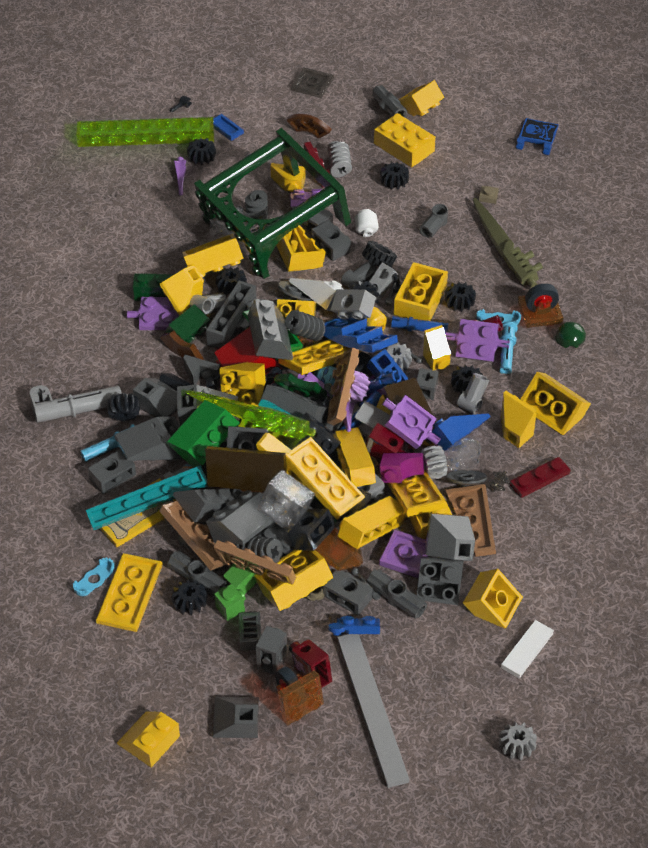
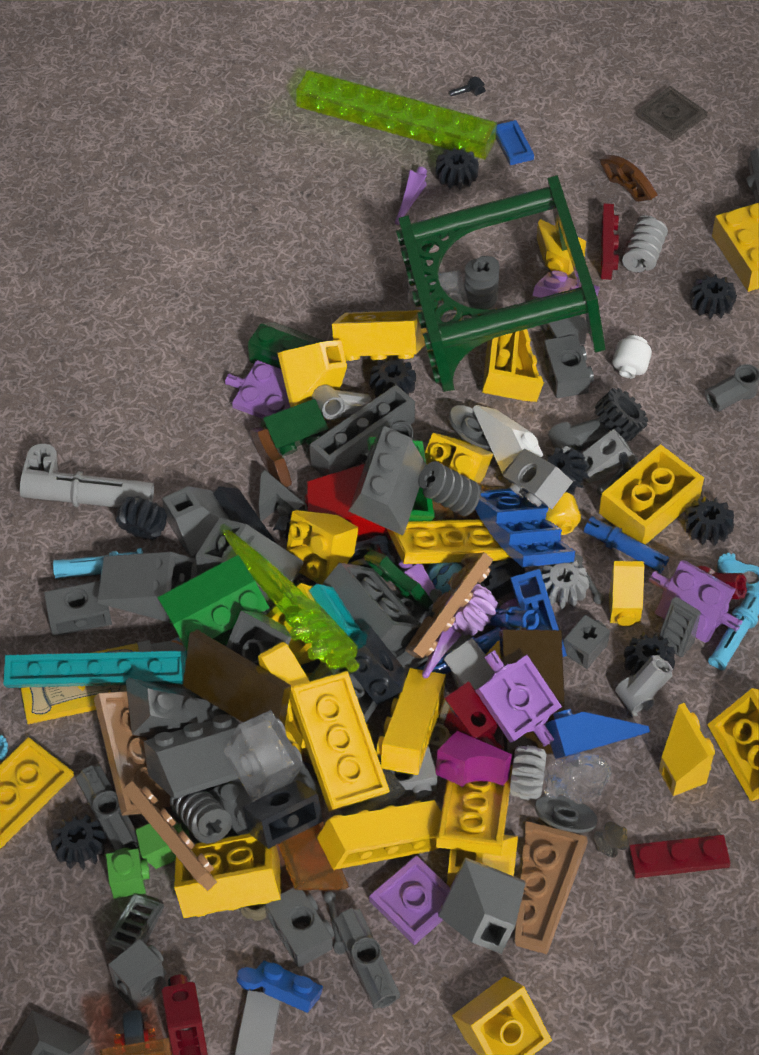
camera: 25 degrees right, 5 degrees up
(440, 580) = (440, 964): dark grey slope -> none
(476, 356) = (679, 630): none -> dark grey slope

